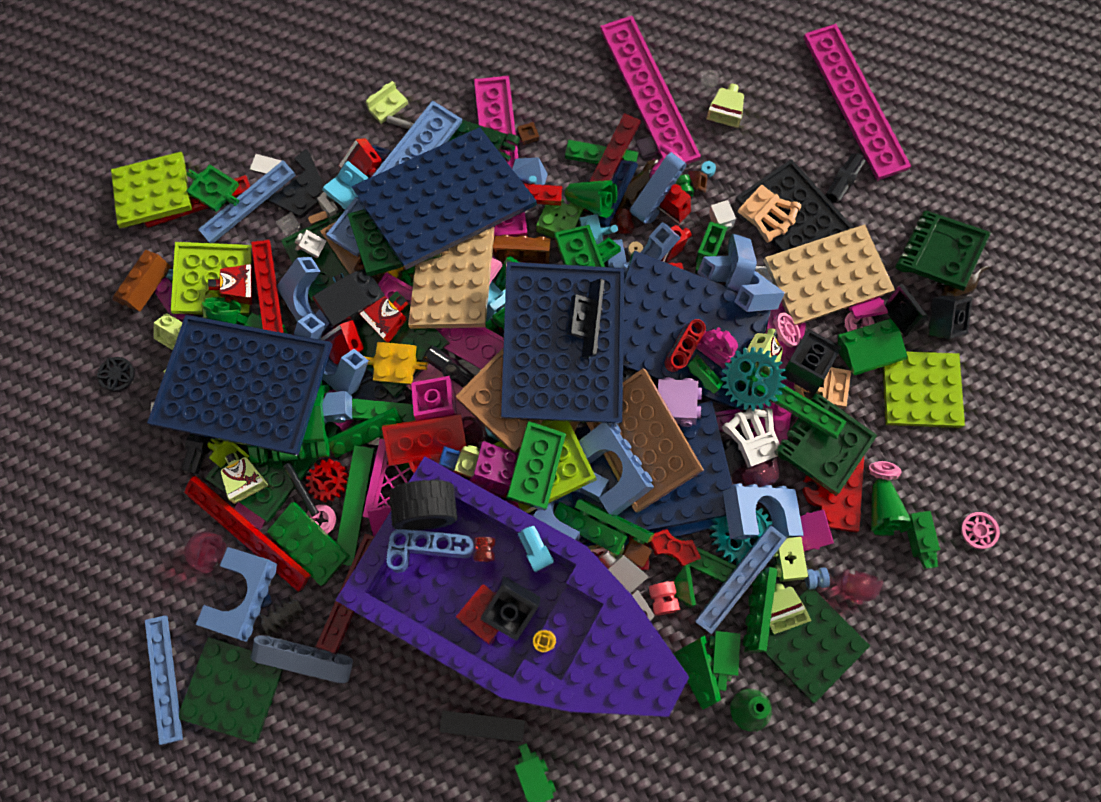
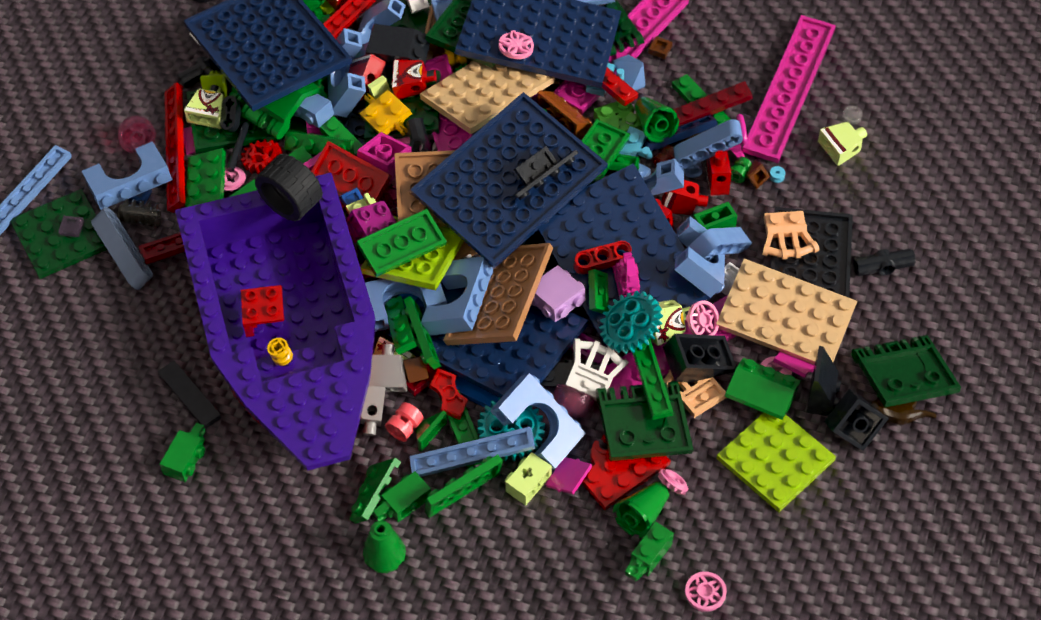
camera: 45 degrees right, 15 degrees down
(239, 678) = (71, 226): none -> clear purple tile
(268, 467) = (229, 114): none -> black beam
(367, 345) = (378, 86): none -> yellowish green tile
(429, 549) = (256, 208): medium blue beam -> none
(447, 223) = (516, 45): none -> bright pink wheel
(484, 549) = (301, 254): clear red wheel -> none
(510, 608) = (279, 308): black slope -> none
(536, 552) = (333, 286): medium azure piece -> none
(722, 214) = (748, 211): white brick -> none
(787, 610) = (481, 502): yellowish green torso -> none
(816, 651) = (479, 550): dark green plate -> none
(817, 578) = (533, 508): medium blue wheel -> none
(857, 102) = (959, 218): dark pink plate -> none
(860, 586) = (559, 539): clear pink cylinder -> none

